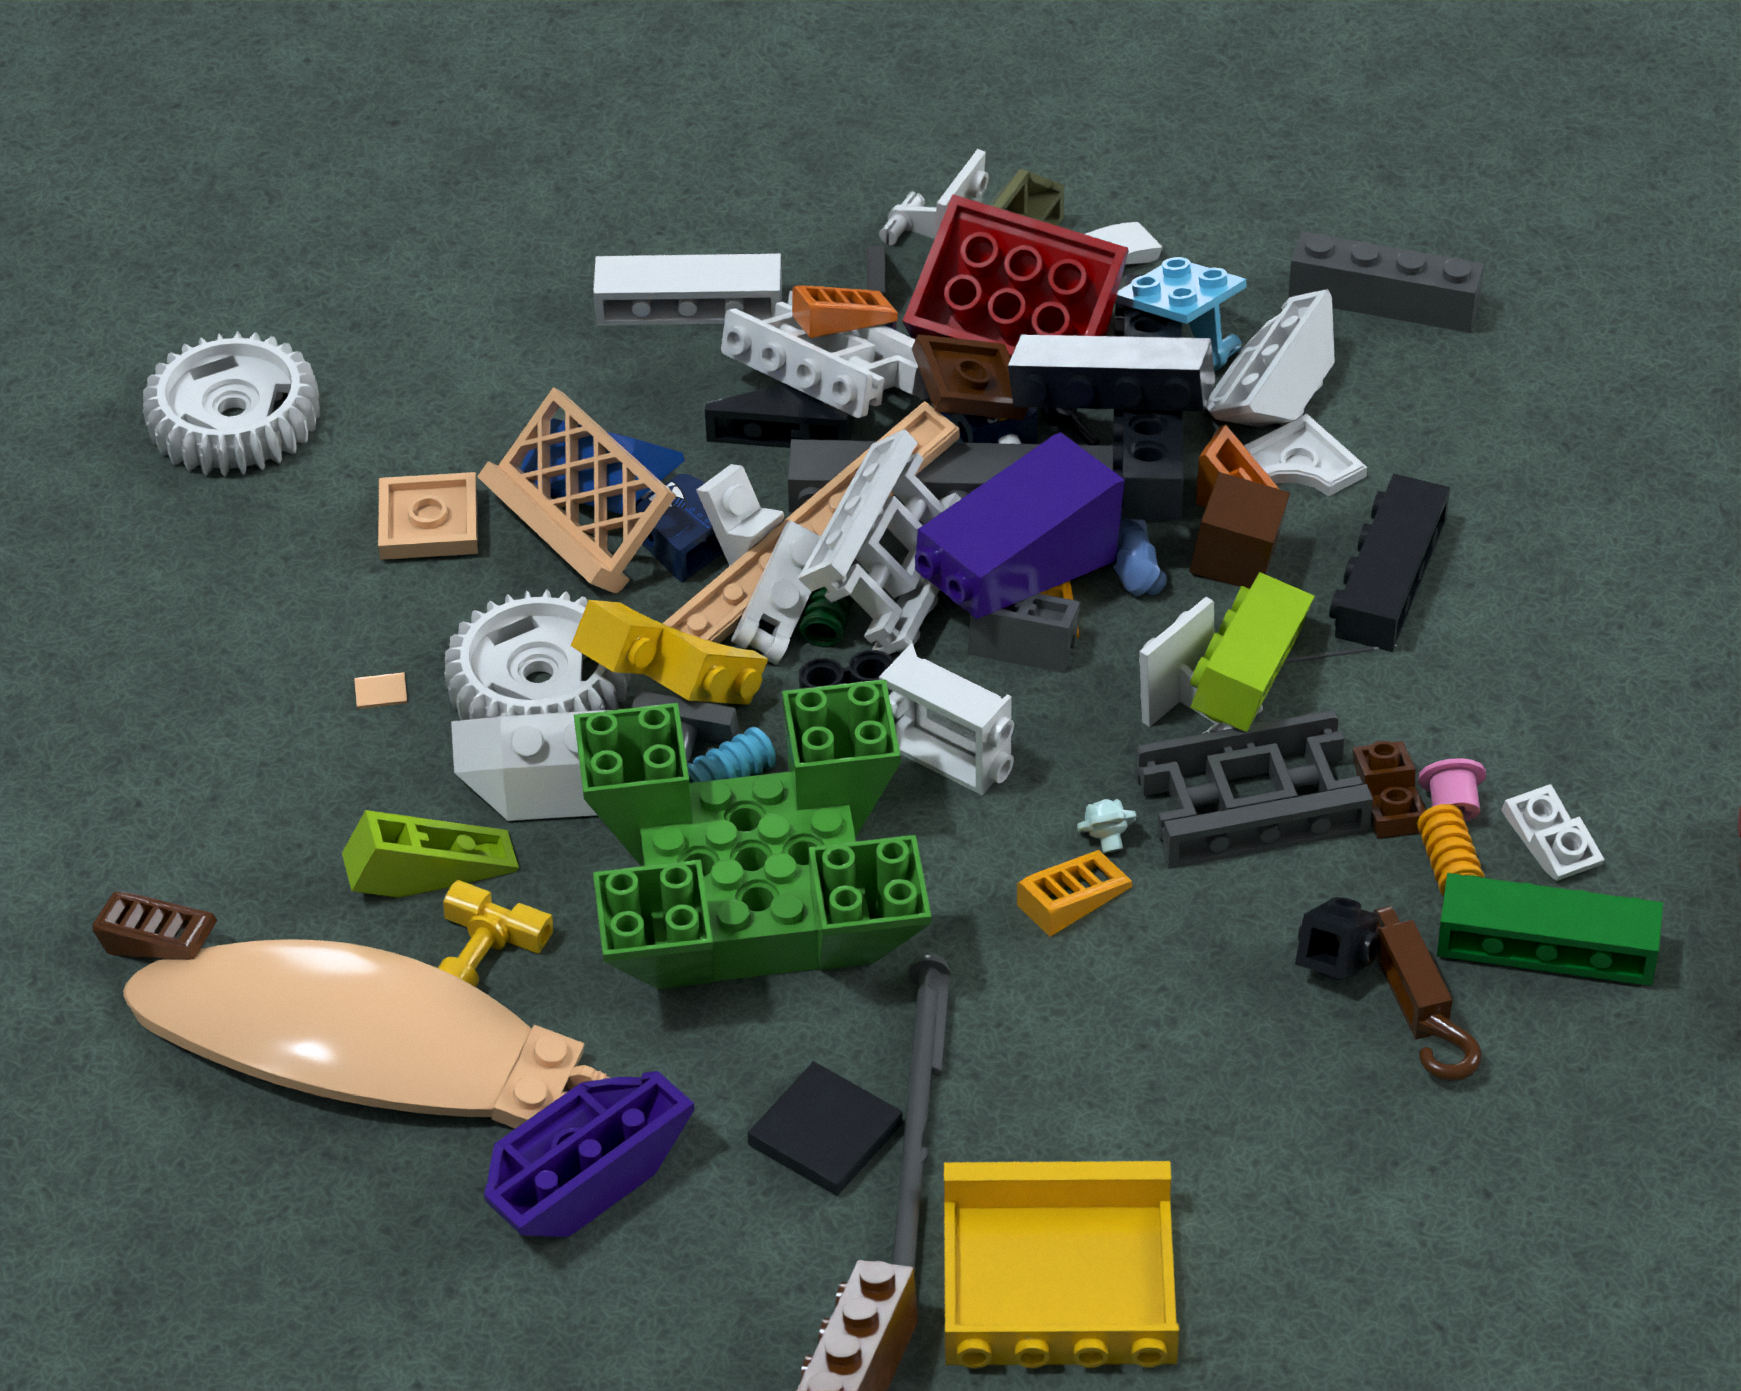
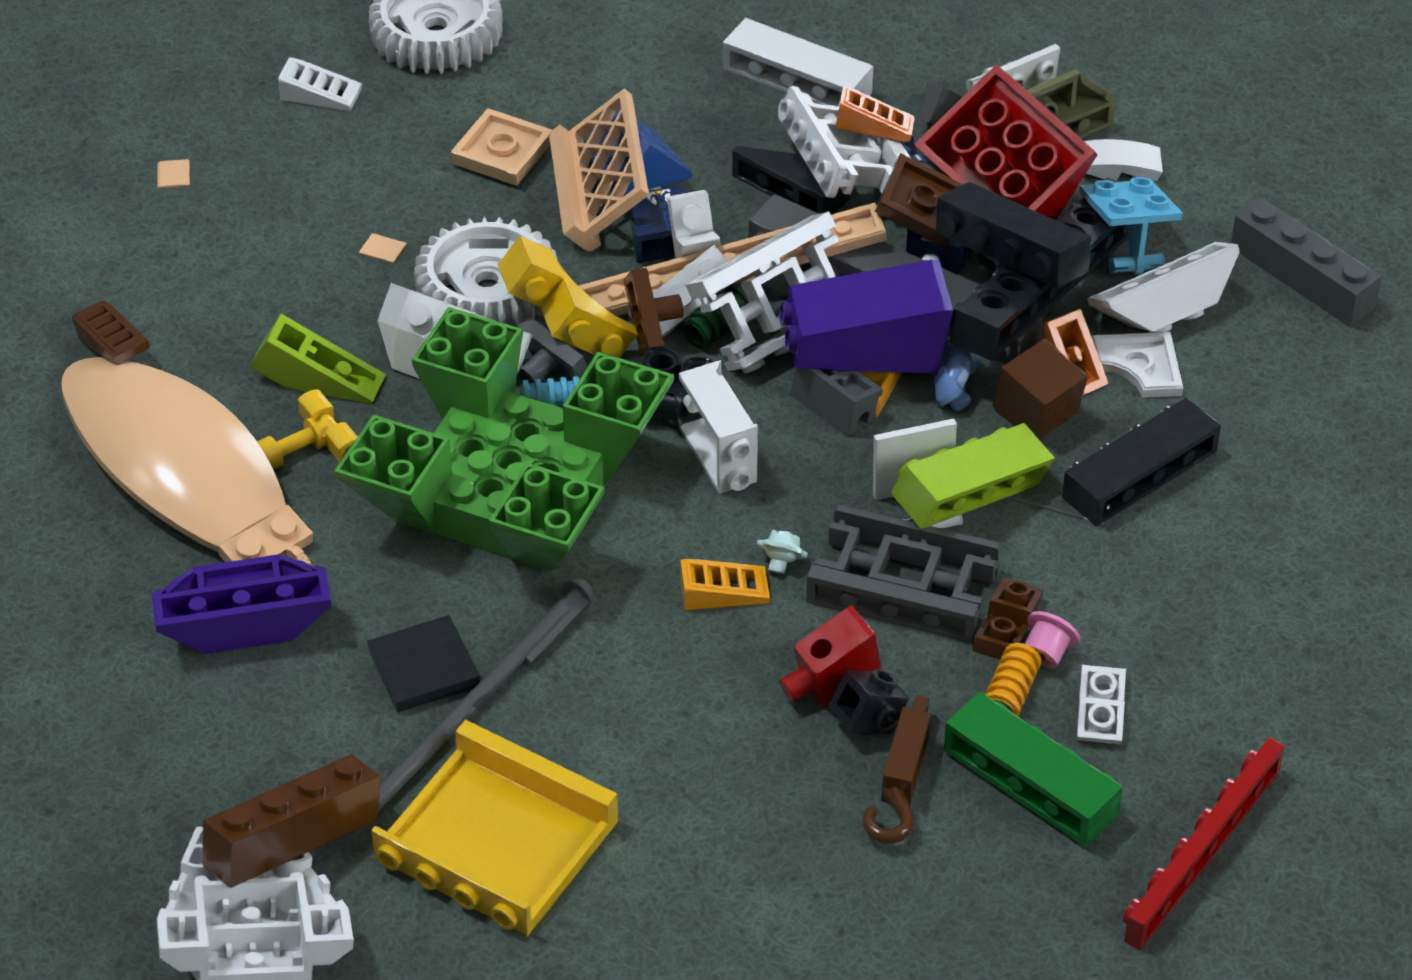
camera: 30 degrees right, 0 degrees up
(55, 711) = (173, 173): none -> light nougat piece
(128, 548) = (306, 84): none -> white slope
(768, 626) = (649, 311): none -> reddish brown tile
(1269, 911) = (827, 653): none -> red torso

